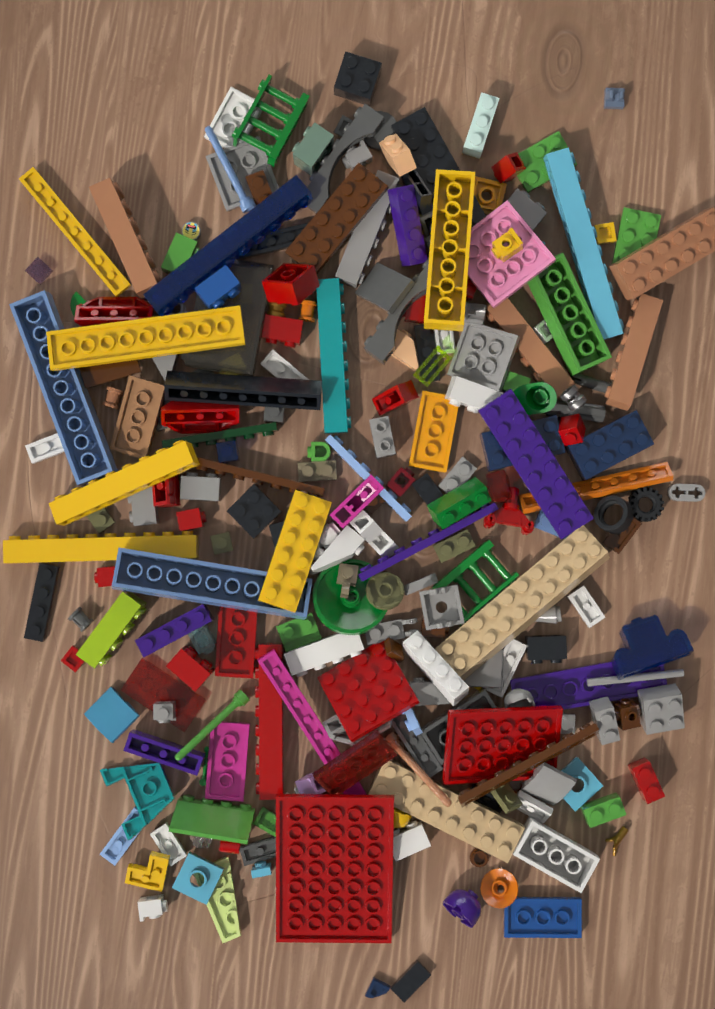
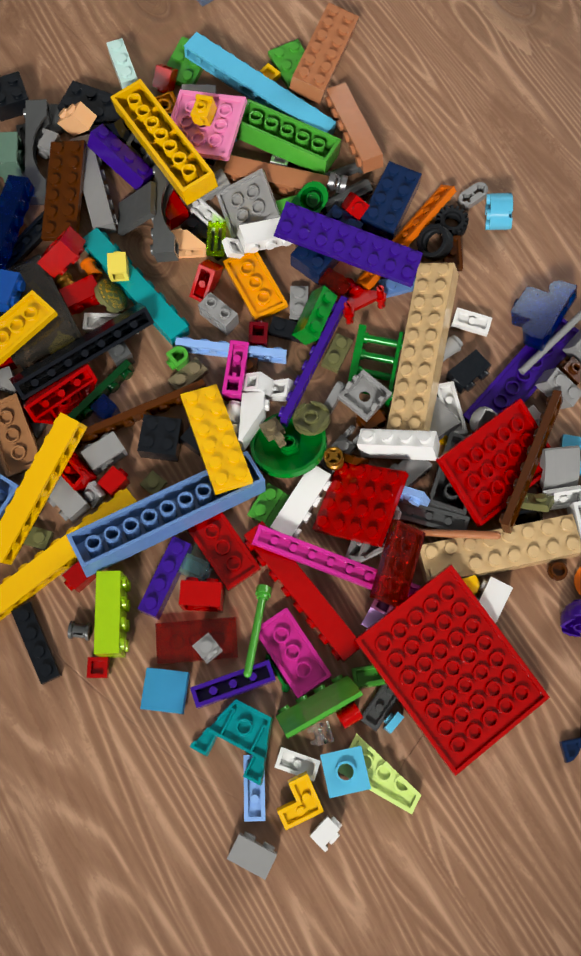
camera: 35 degrees left, 15 degrees down
(88, 881) = (252, 855): none -> light grey brick
(167, 517) = (93, 494): none -> light grey plate
(304, 353) = (111, 296): none -> olive tile
(328, 334) = (118, 266): none -> light yellow brick
(375, 635) = (334, 453): none -> pearl gold wheel
(438, 388) = (232, 248): none -> white plate
(692, 530) = (498, 211): none -> medium azure brick

